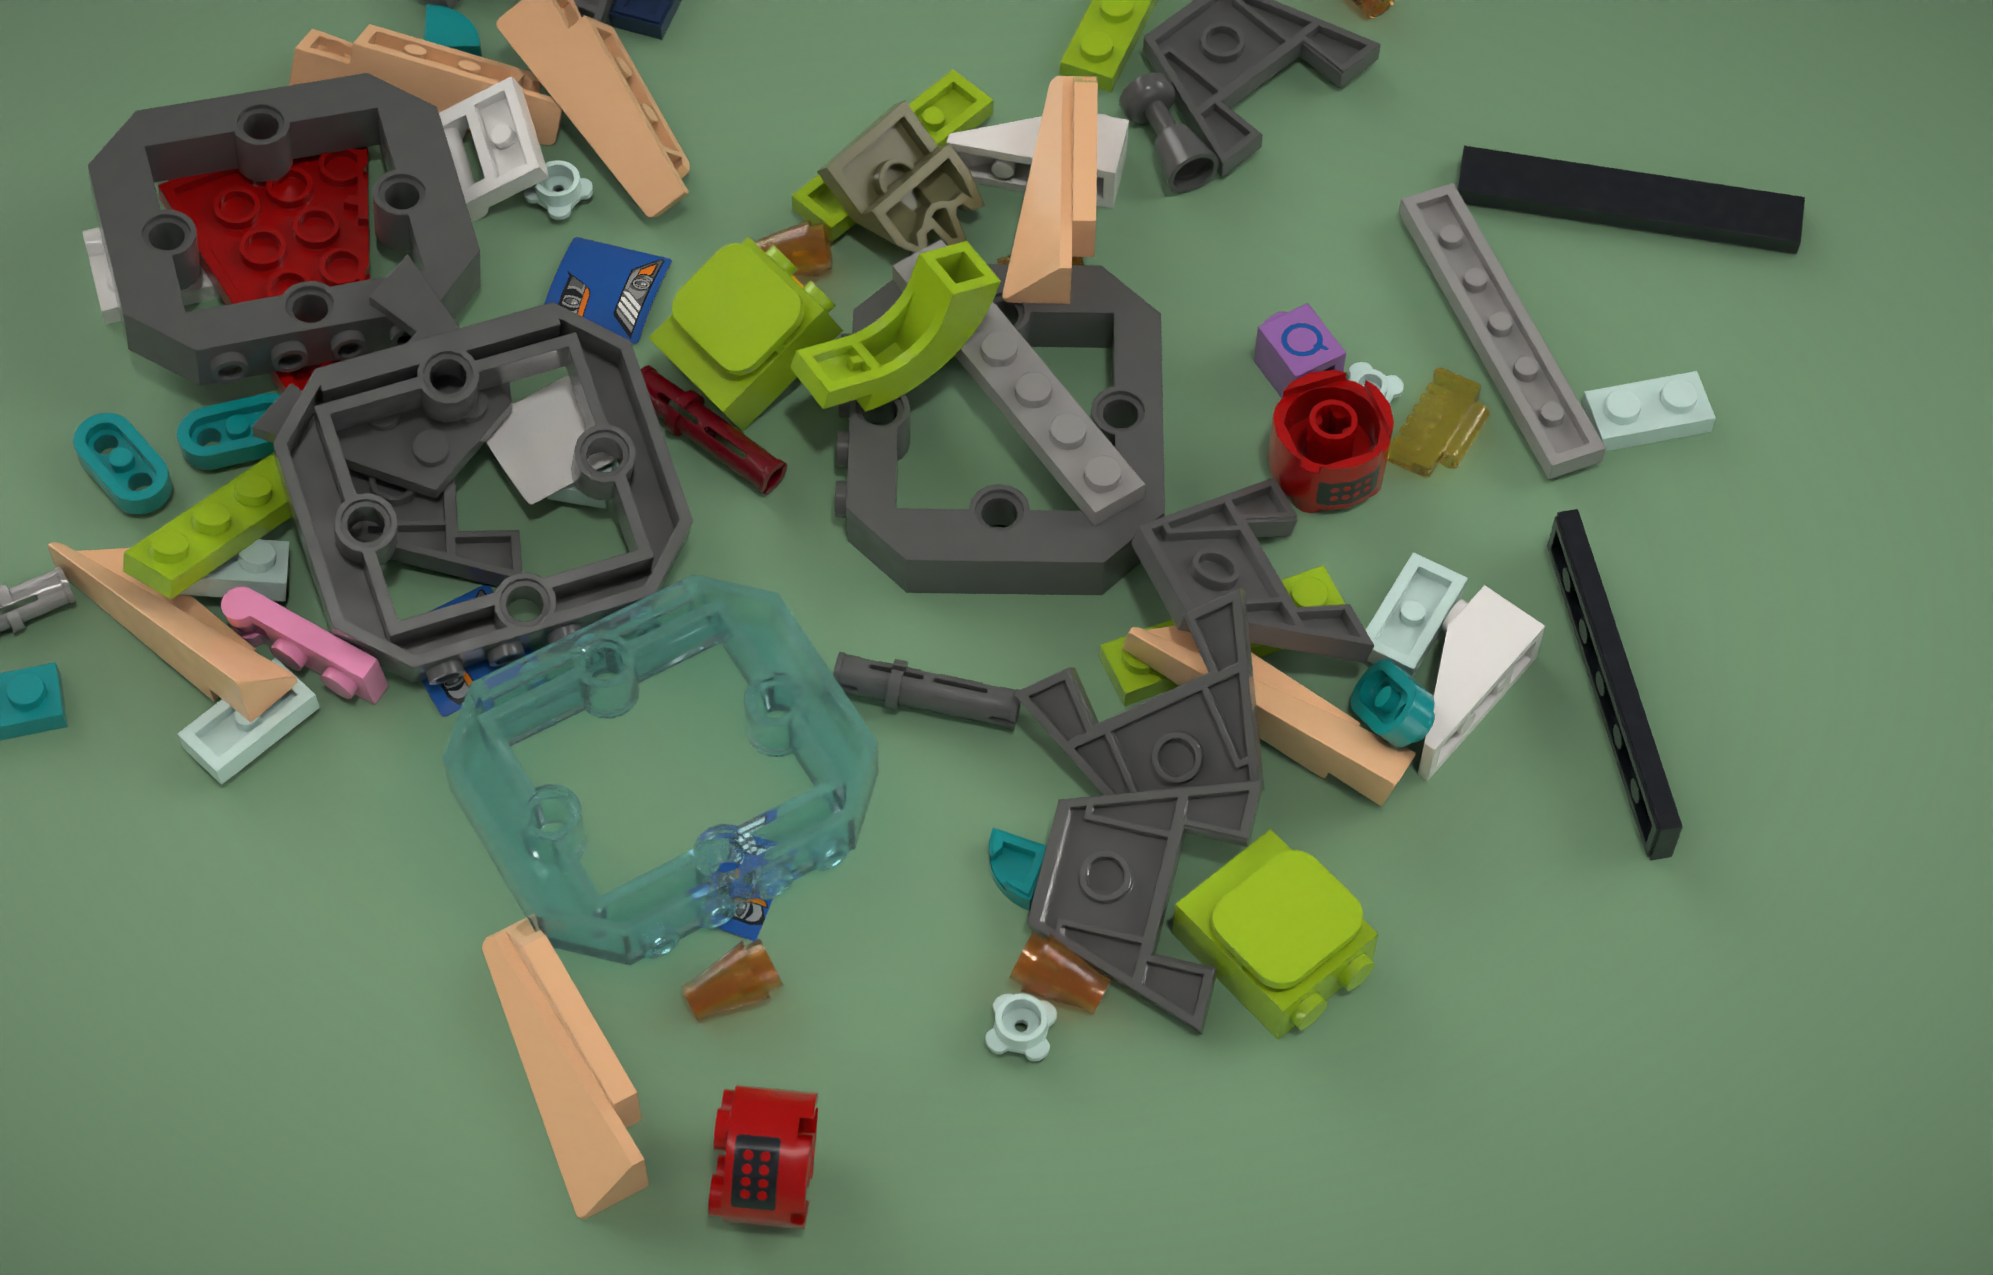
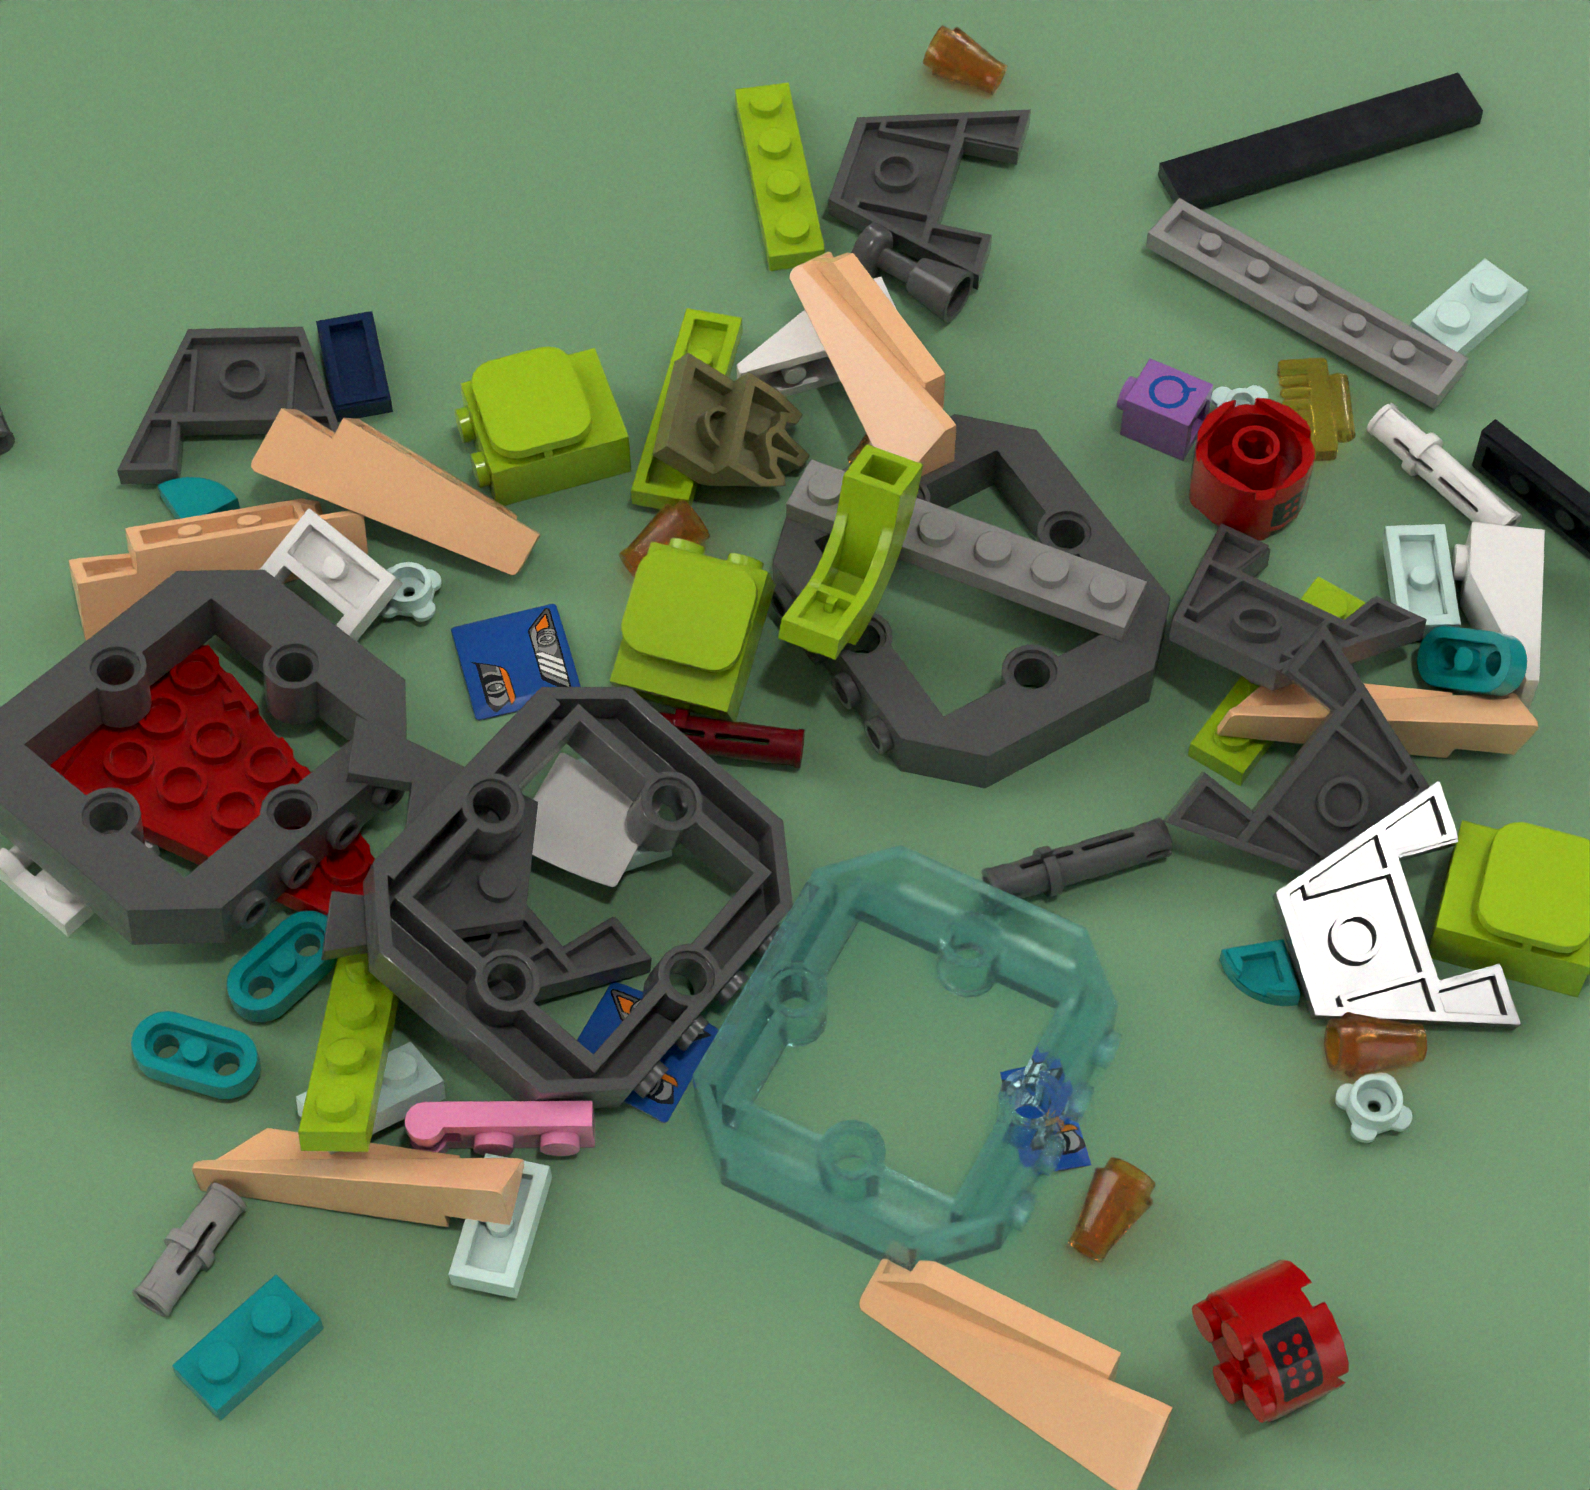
camera: 30 degrees left, 0 degrees up
(762, 105) = (542, 424): none -> lime brick
(1502, 514) = (1425, 456): none -> white pin

